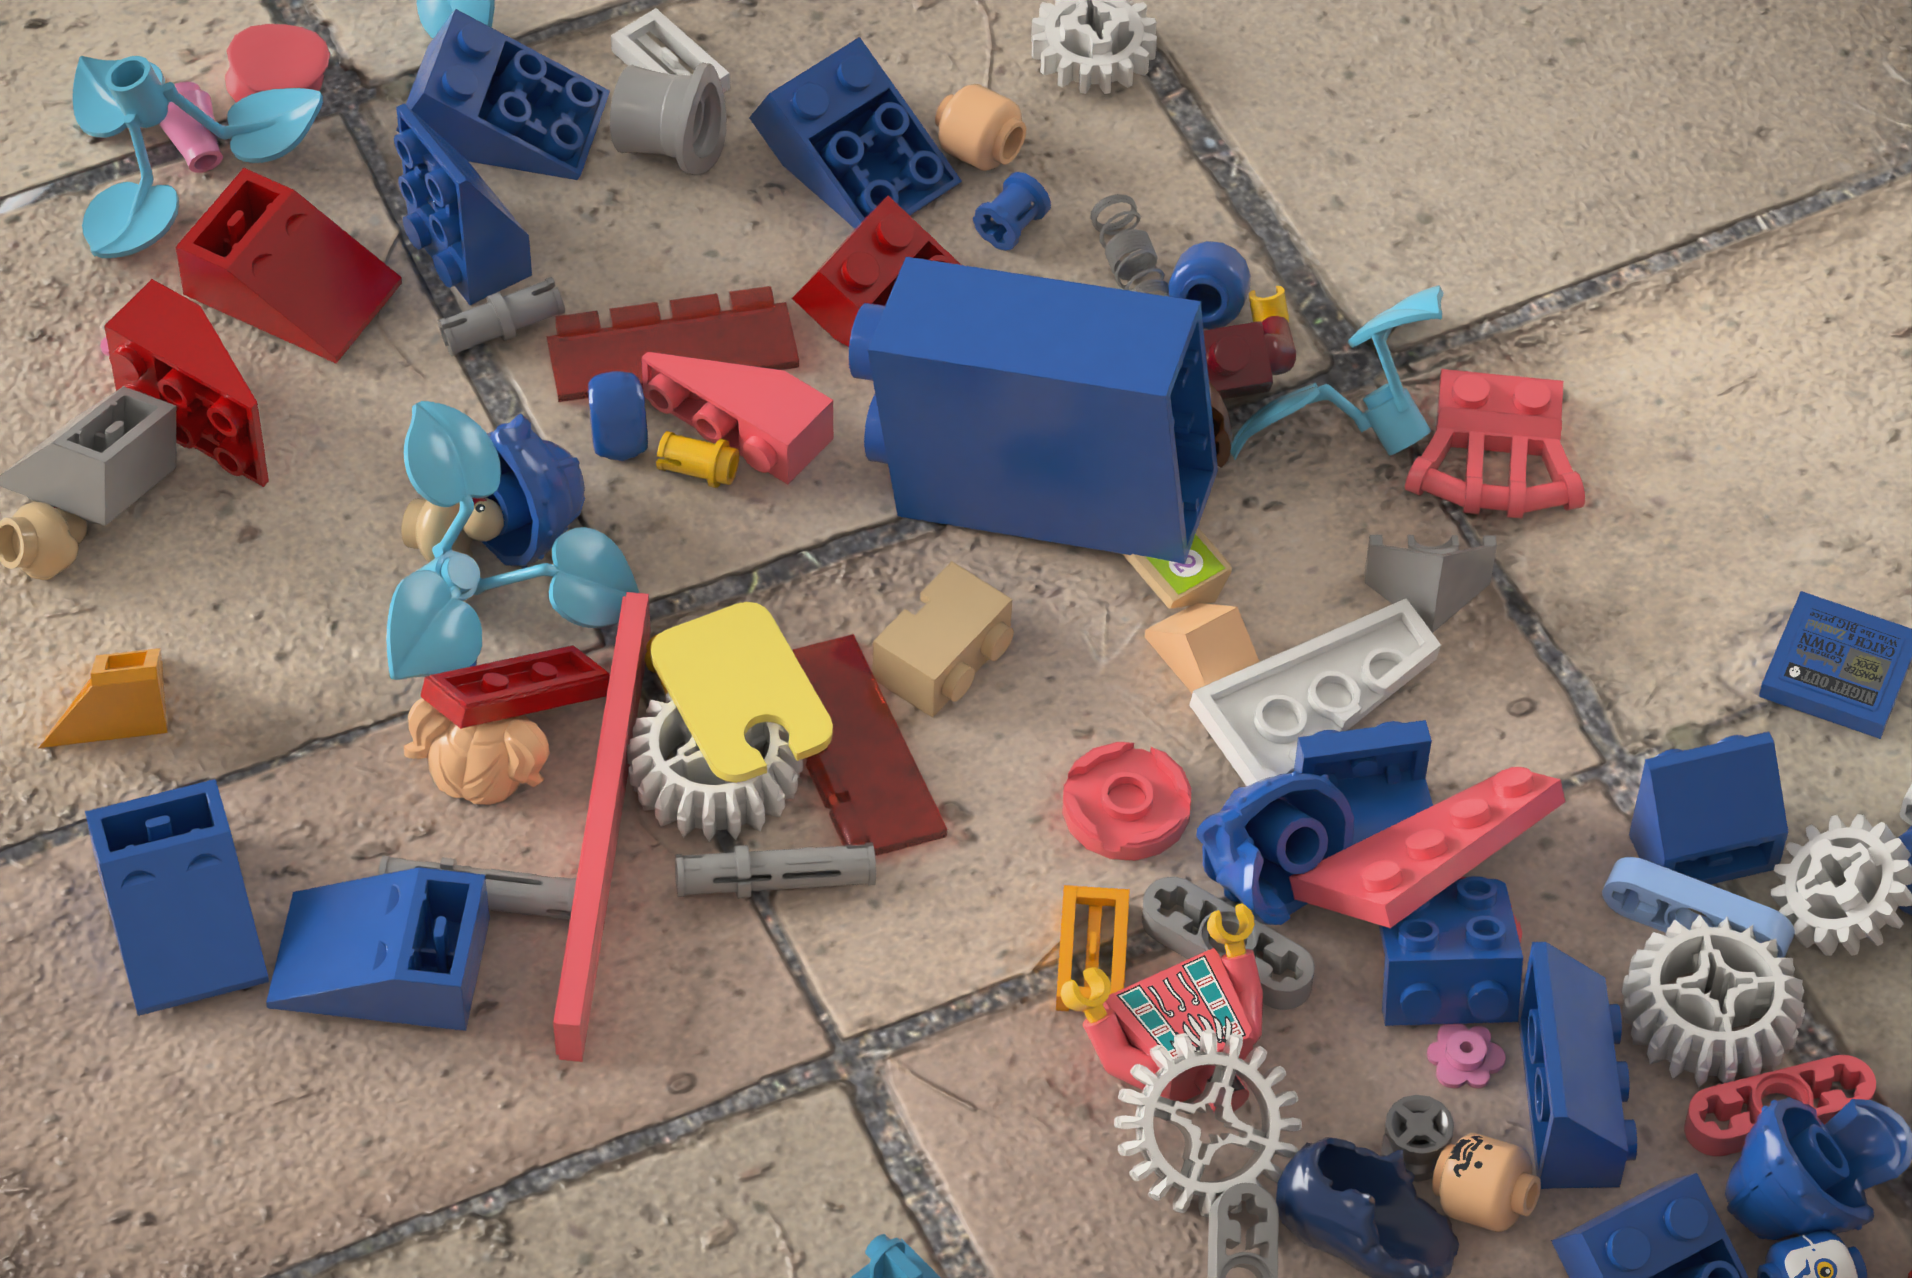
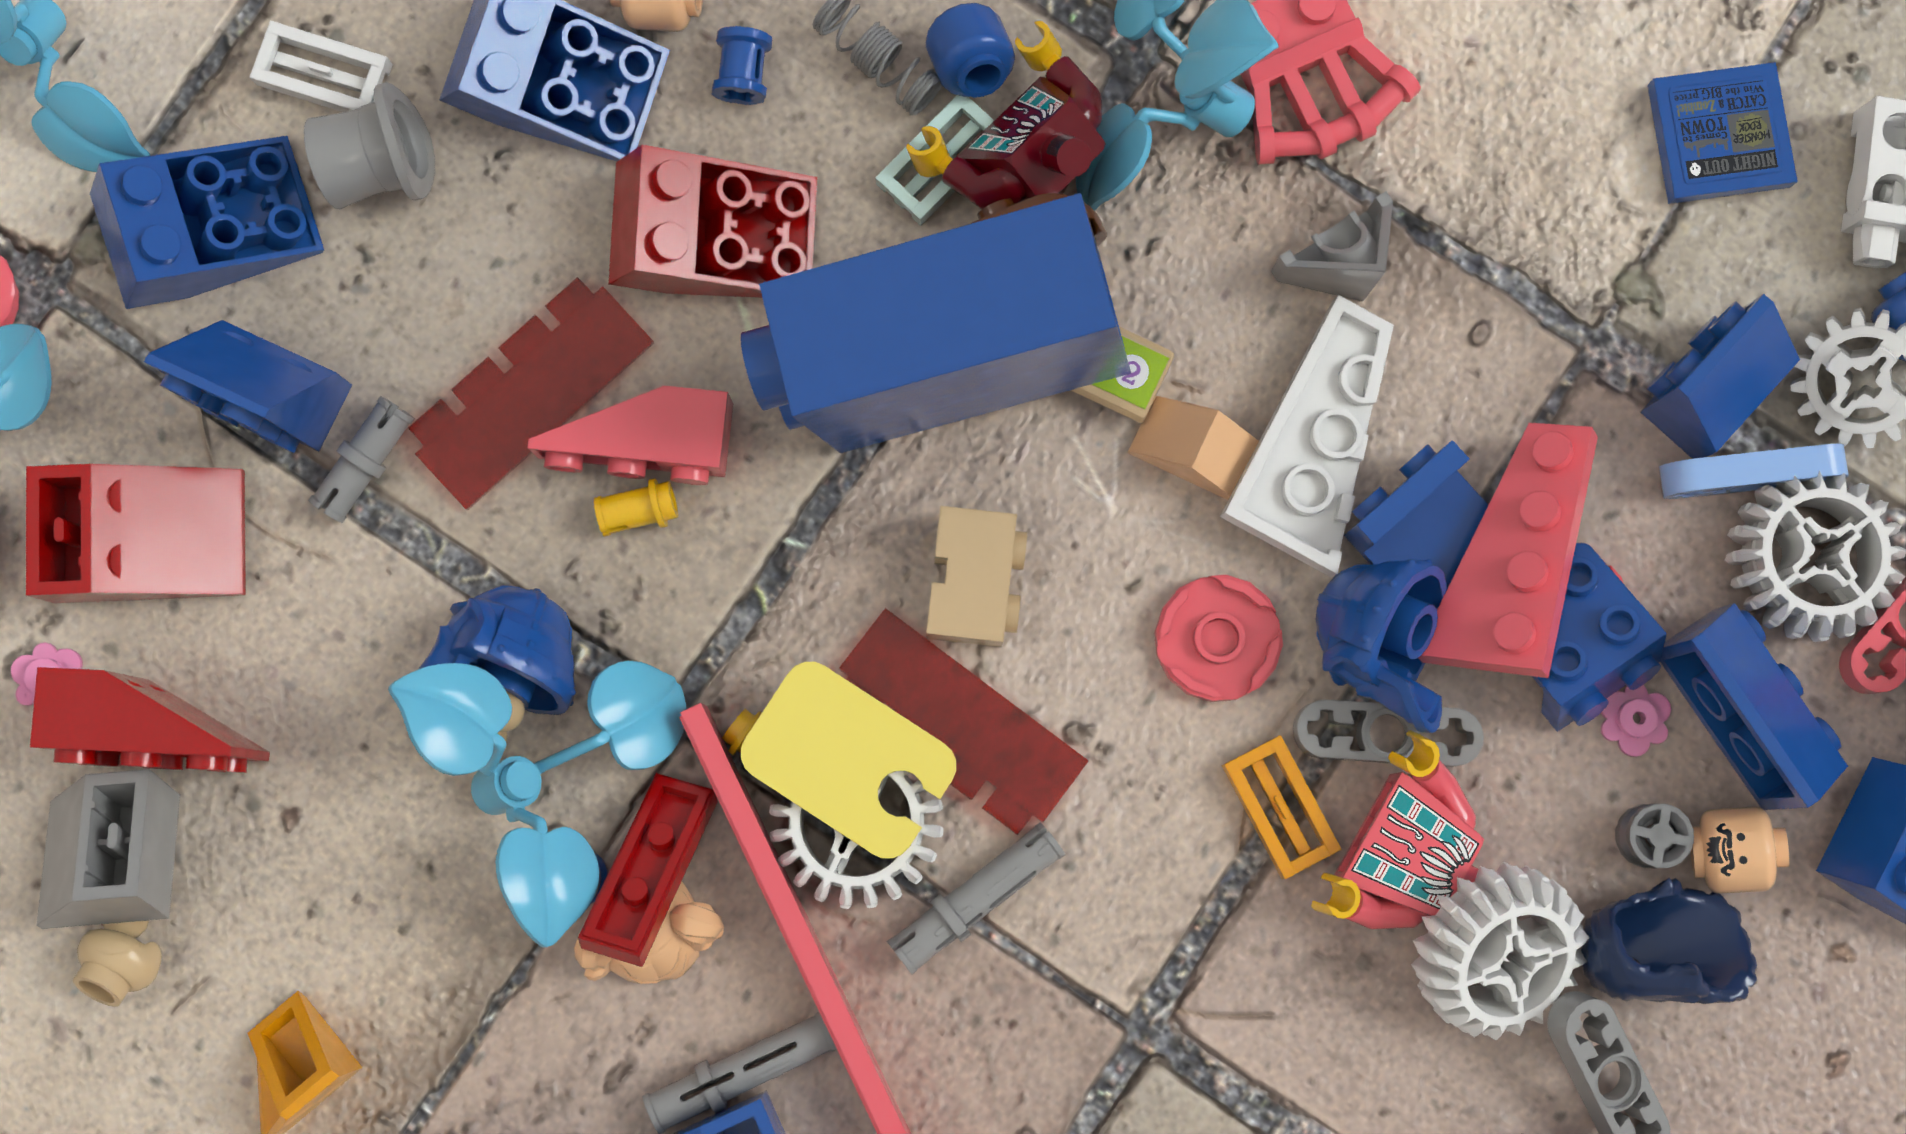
camera: 30 degrees left, 30 degrees up
(617, 415) = (534, 504): blue hair -> none

